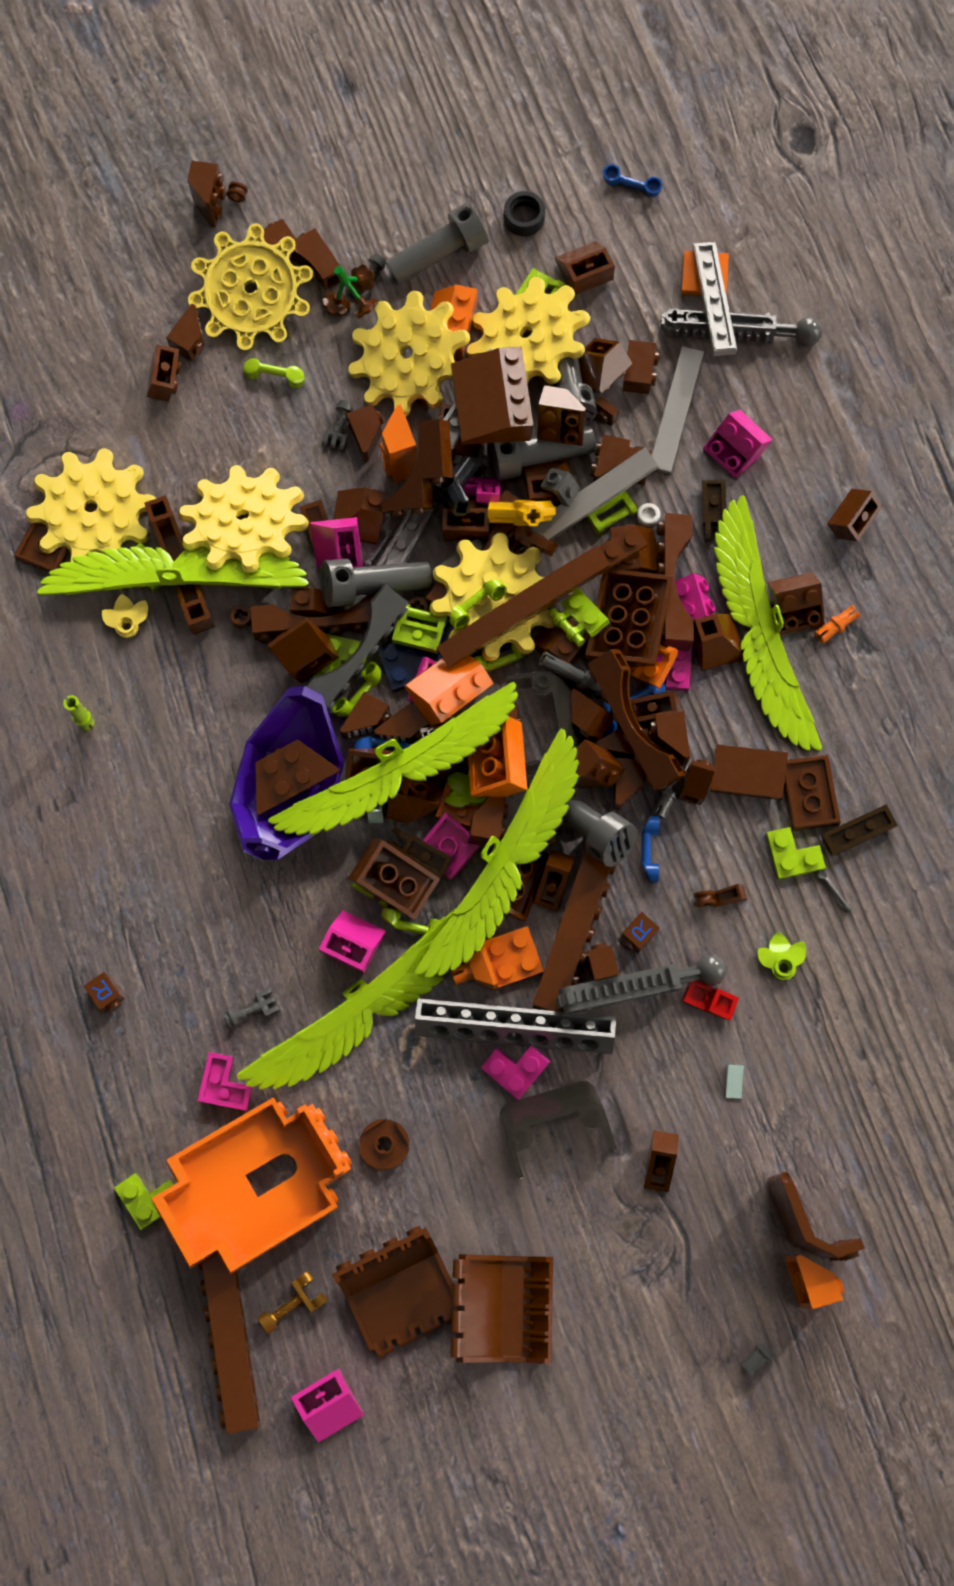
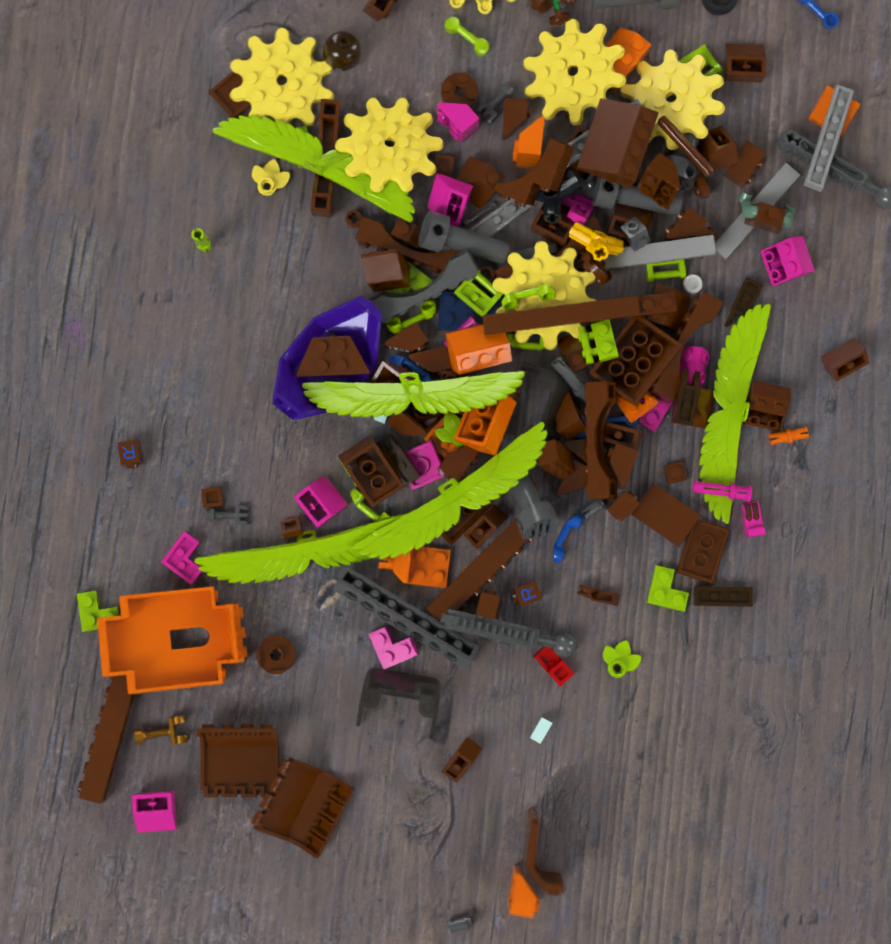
camera: 25 degrees right, 10 degrees up
(143, 446) = (342, 51): none -> dark brown cylinder
(224, 998) = (212, 497): none -> reddish brown plate
(291, 420) = (462, 81): none -> reddish brown plate
(306, 457) = (459, 119): none -> dark pink slope
(332, 988) = (291, 527): none -> reddish brown plate
(568, 370) = (682, 142): none -> reddish brown axle
(689, 405) = (765, 215): none -> torso
(707, 630) = (686, 399): none -> dark brown hinge
(734, 722) = (675, 473): none -> reddish brown plate
(809, 708) = (732, 494): none -> dark pink pin
(846, 731) = (752, 519): none -> dark pink leg

